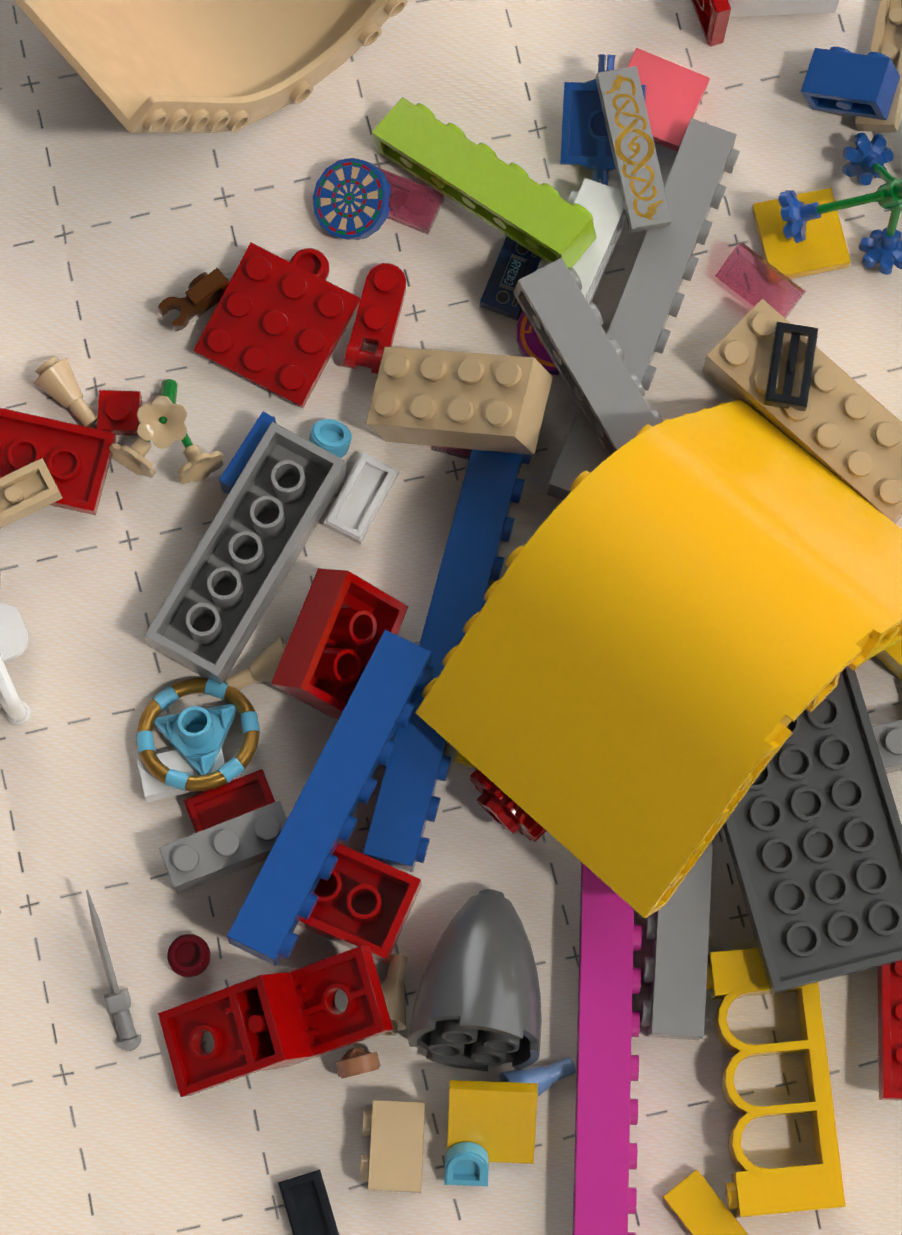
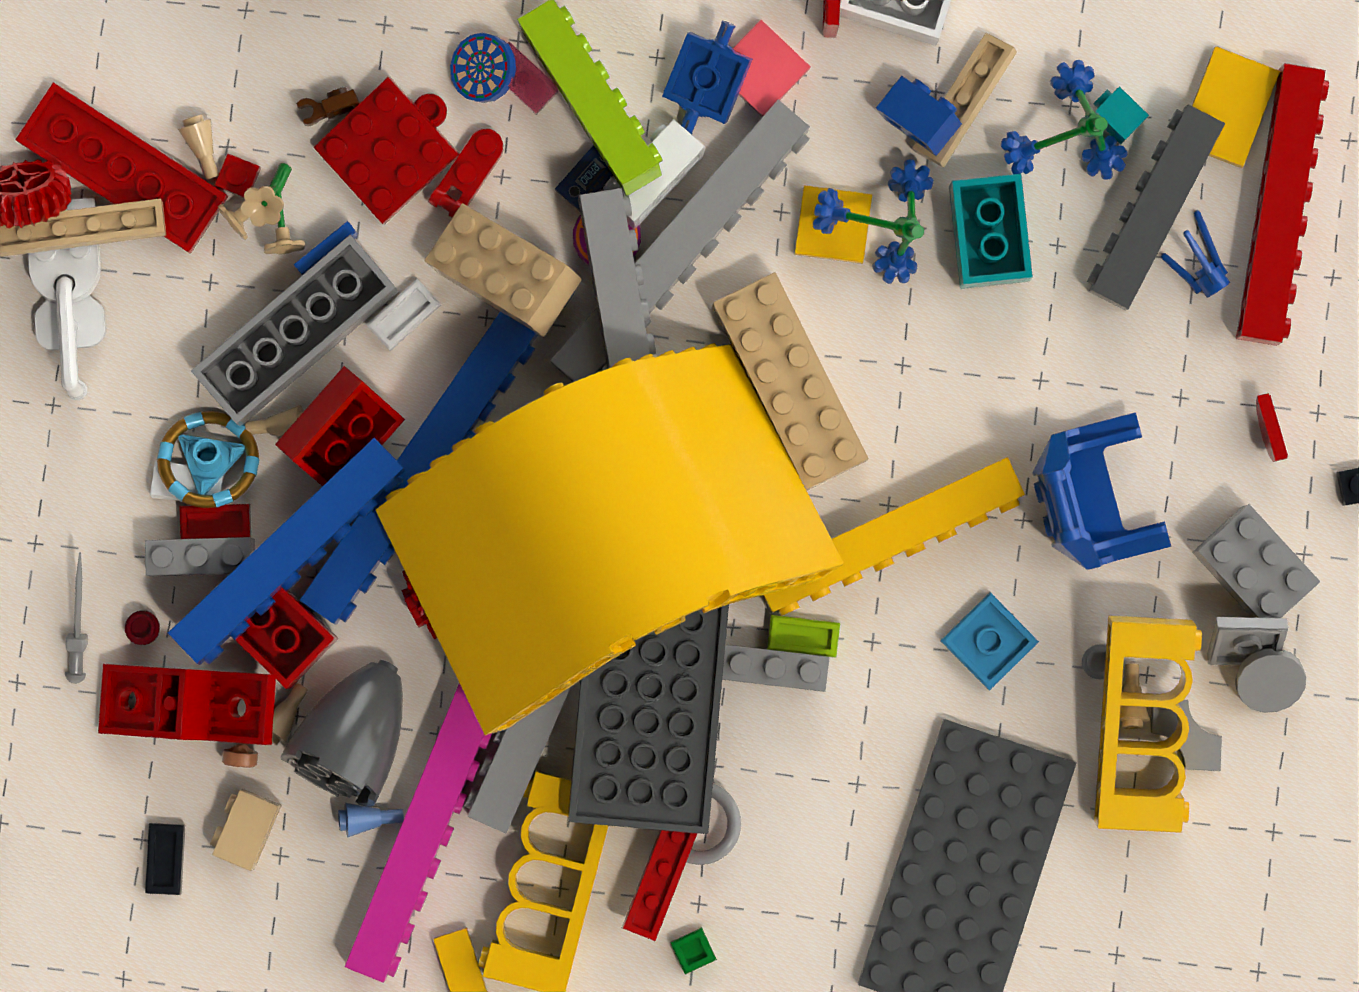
camera: 15 degrees right, 10 degrees up
(331, 436) = (395, 259): medium azure tile -> none
(466, 1165) = (294, 862): medium azure tile -> none
(495, 1117) = (323, 838): yellow tile -> none
(633, 149) = (718, 111): light grey tile -> none
(757, 279) = (783, 254): clear pink tile -> none
(785, 399) = (759, 363): black tile -> none

